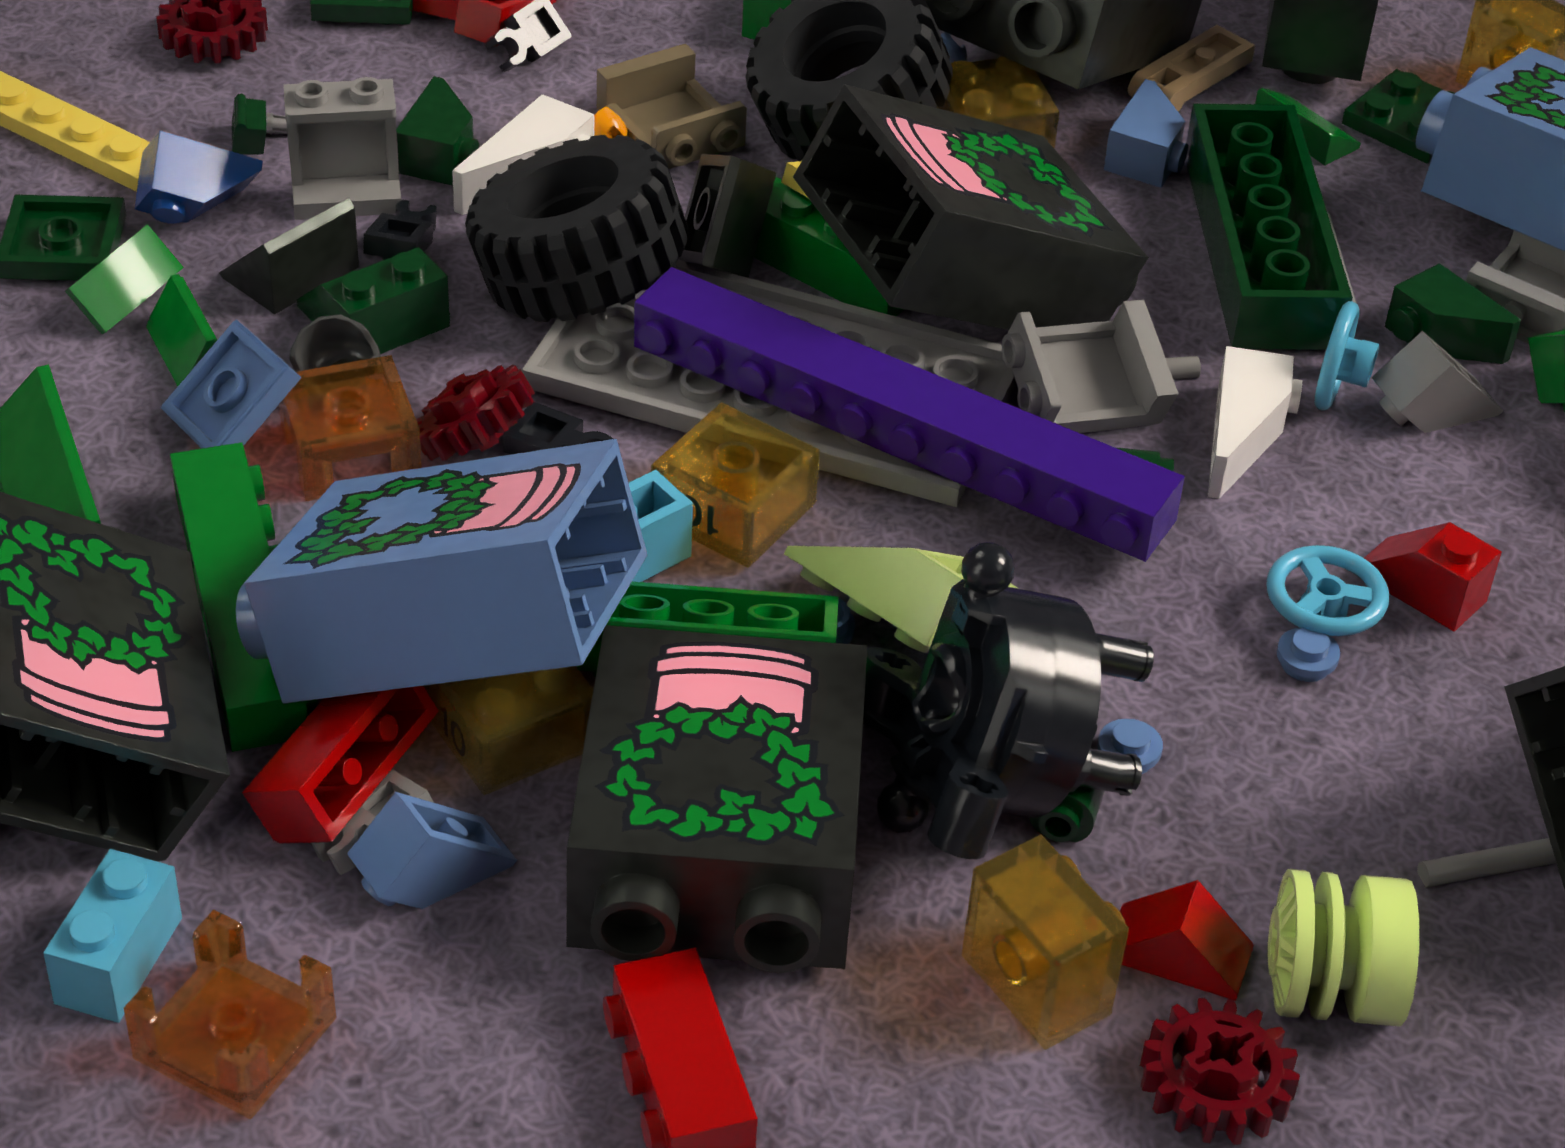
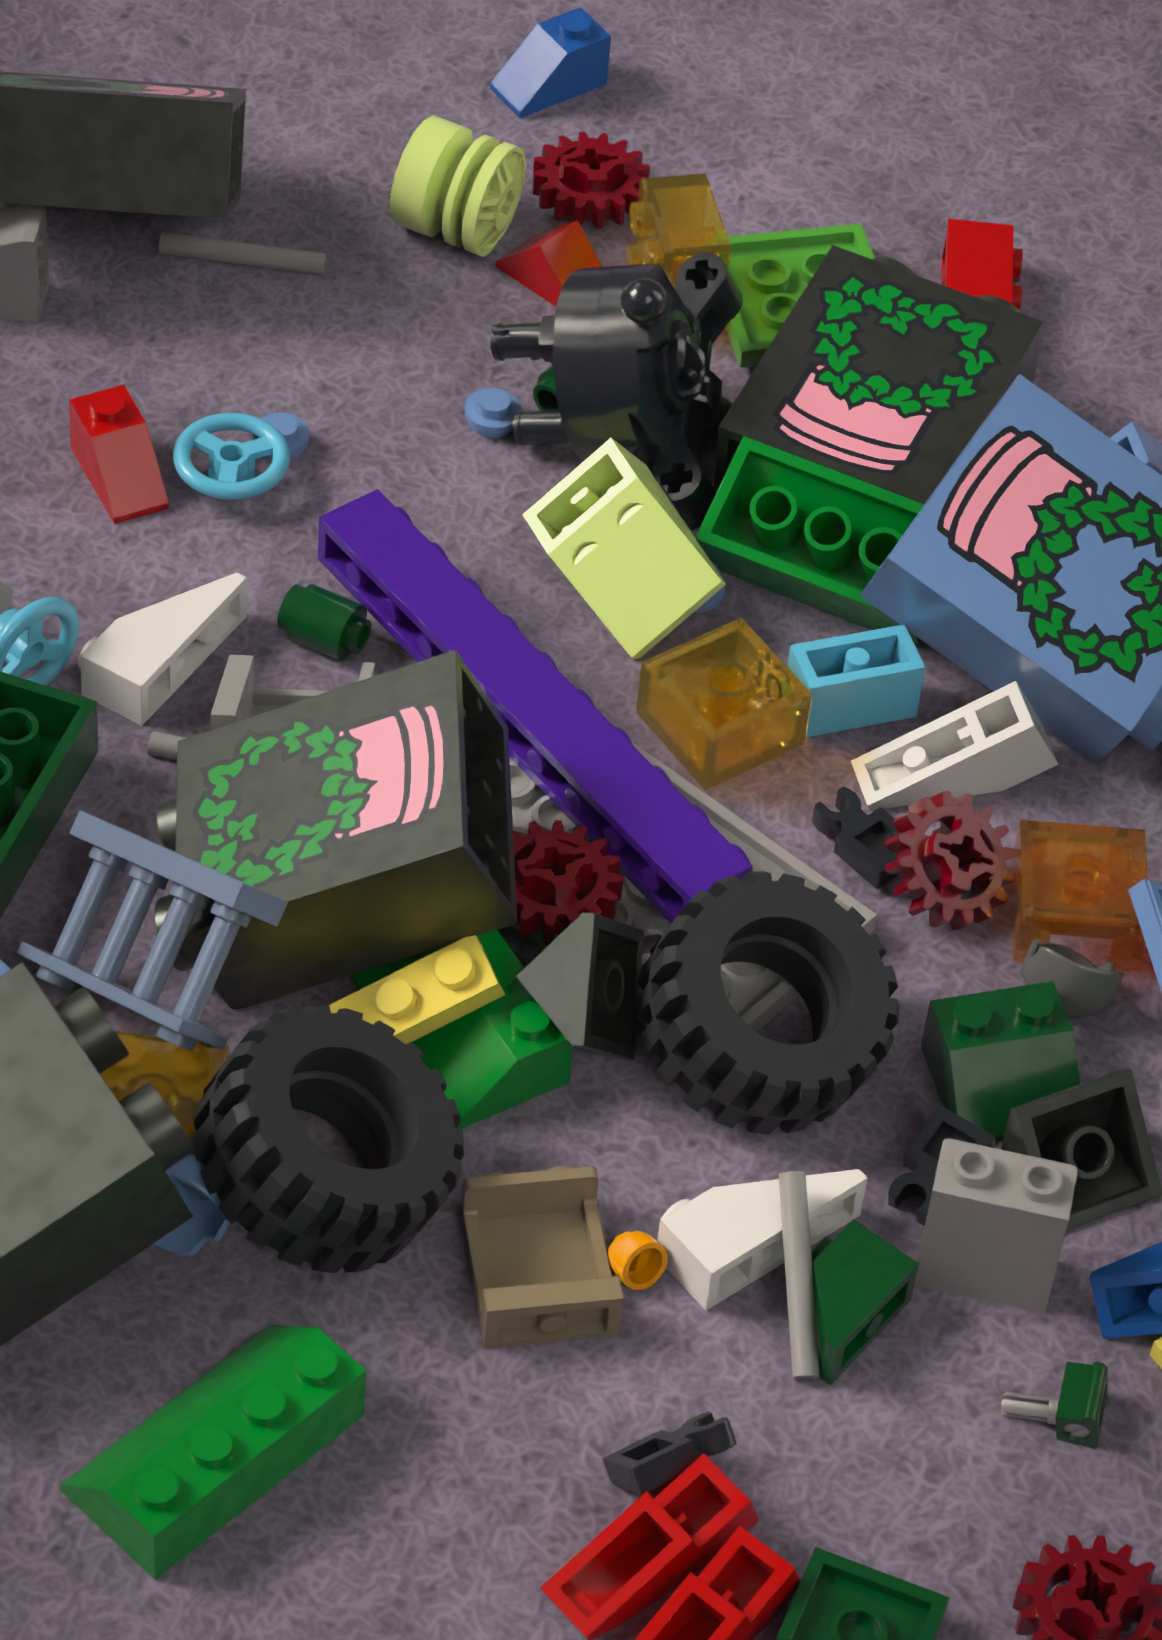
camera: 160 degrees left, 5 degrees up
(492, 120) = (799, 1275): none -> light grey bar
(798, 282) = (562, 878): none -> dark red gear
(915, 1008) = (772, 276): none -> bright green plate
(1067, 132) = (192, 889): none -> sand blue fence

